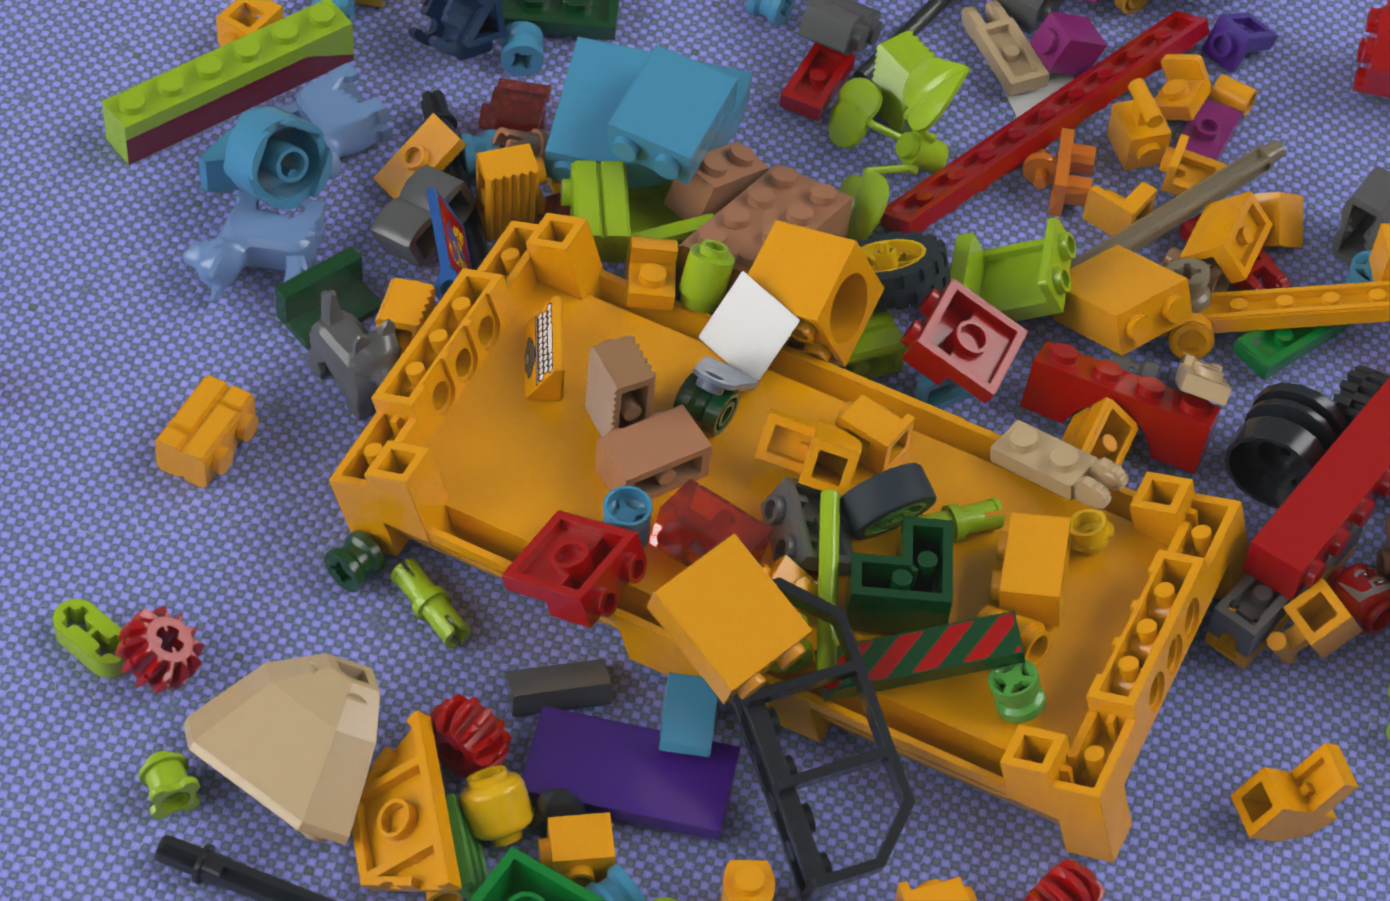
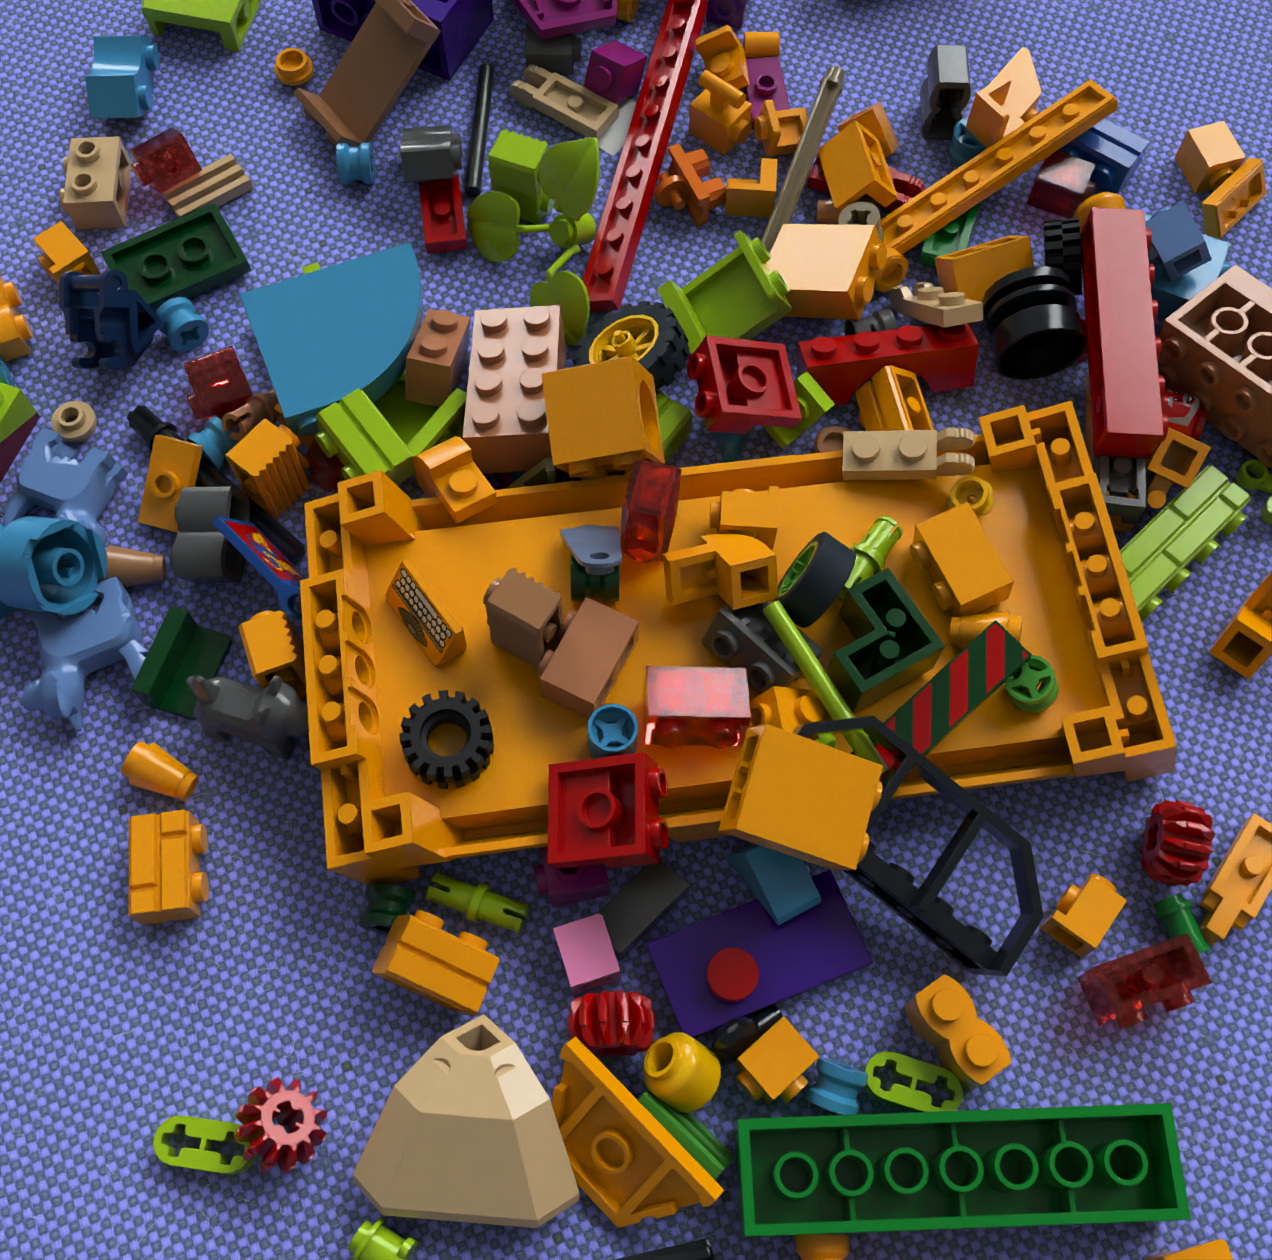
camera: 30 degrees left, 15 degrees up
(251, 363) = (158, 771): none -> light orange cone
(344, 208) = (134, 566): none -> medium nougat cone
(363, 611) = (437, 963): none -> light orange brick
(378, 77) = (78, 430): none -> tan plate
(489, 678) = (587, 954): none -> bright pink panel
(491, 469) = (438, 712): none -> black tyre
(522, 627) = (571, 883): none -> magenta brick
(592, 764) = (732, 975): none -> red tile
(671, 114) = (374, 322): dark azure brick -> none
(706, 276) = (507, 455): lime brick -> none
(749, 327) = (580, 484): white sticker -> none
(788, 371) = (649, 510): none -> clear red brick
(1012, 402) = (812, 404): none -> lime bracket
(1260, 369) = (980, 266): none -> light orange brick
(1268, 695) = (1182, 534): none -> lime brick

